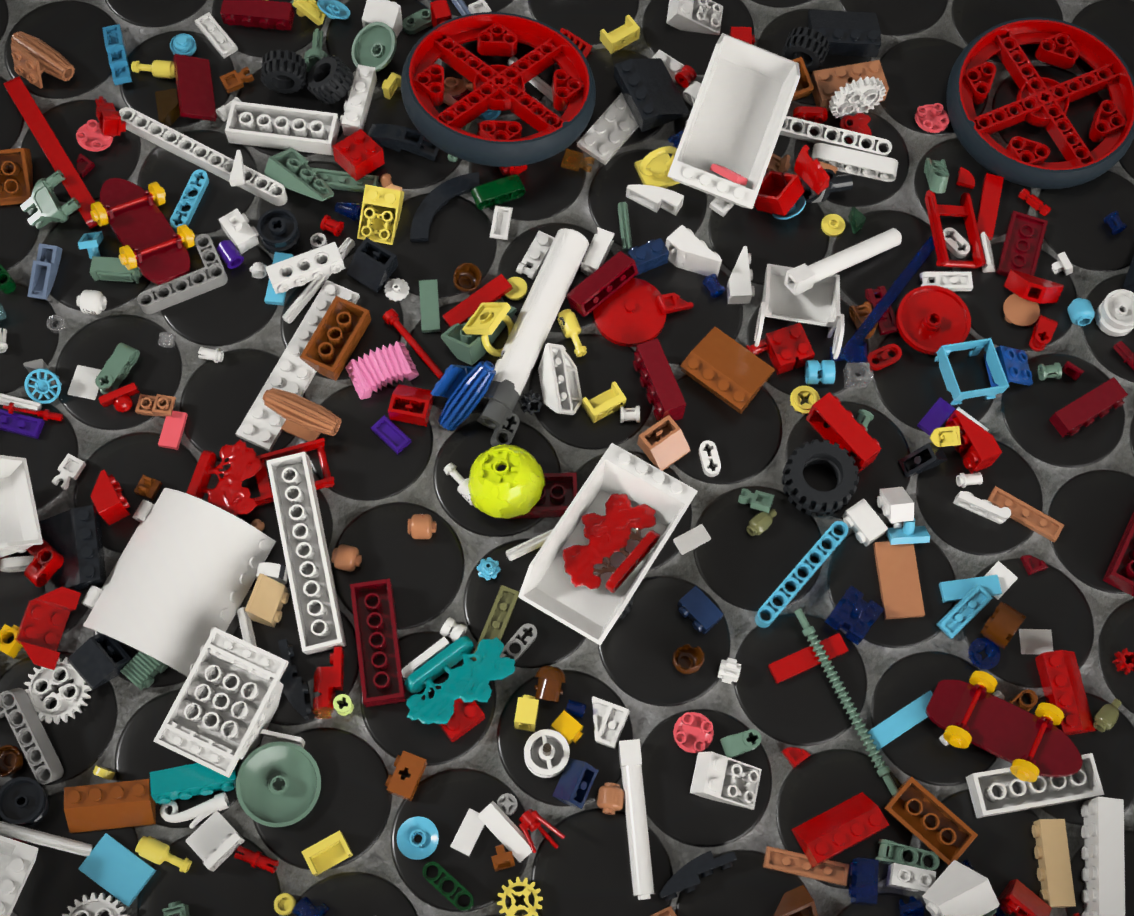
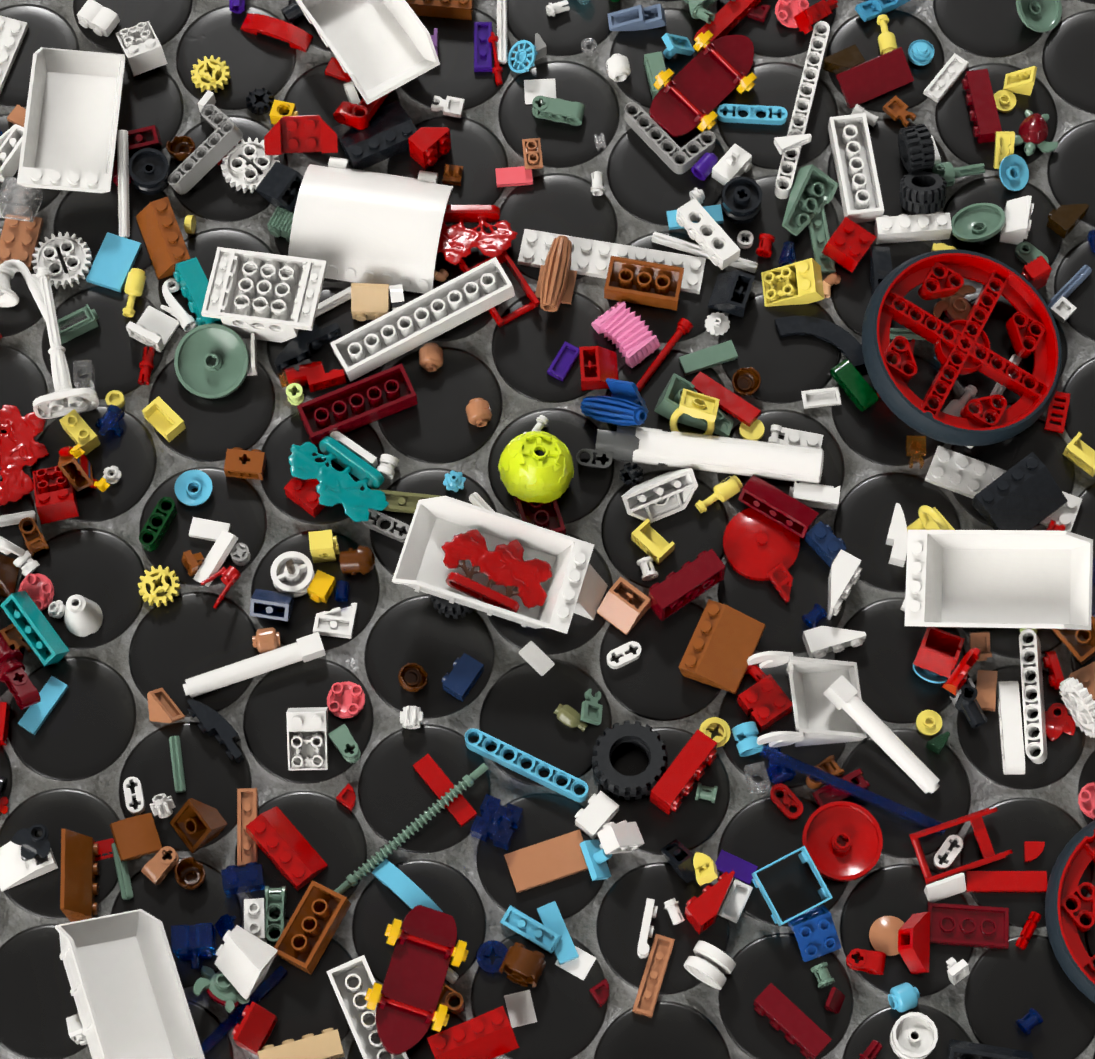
camera: 80 degrees right, 0 degrees up
(120, 398) = (530, 123): red tile -> none
(624, 226) = (856, 515): sand green axle -> none
(729, 174) = (939, 595): coral tile -> none
(936, 175) = (1019, 813): sand green piece -> none
(950, 280) = (897, 851): white plate -> none
(1028, 456) = (709, 965): none -> white wheel

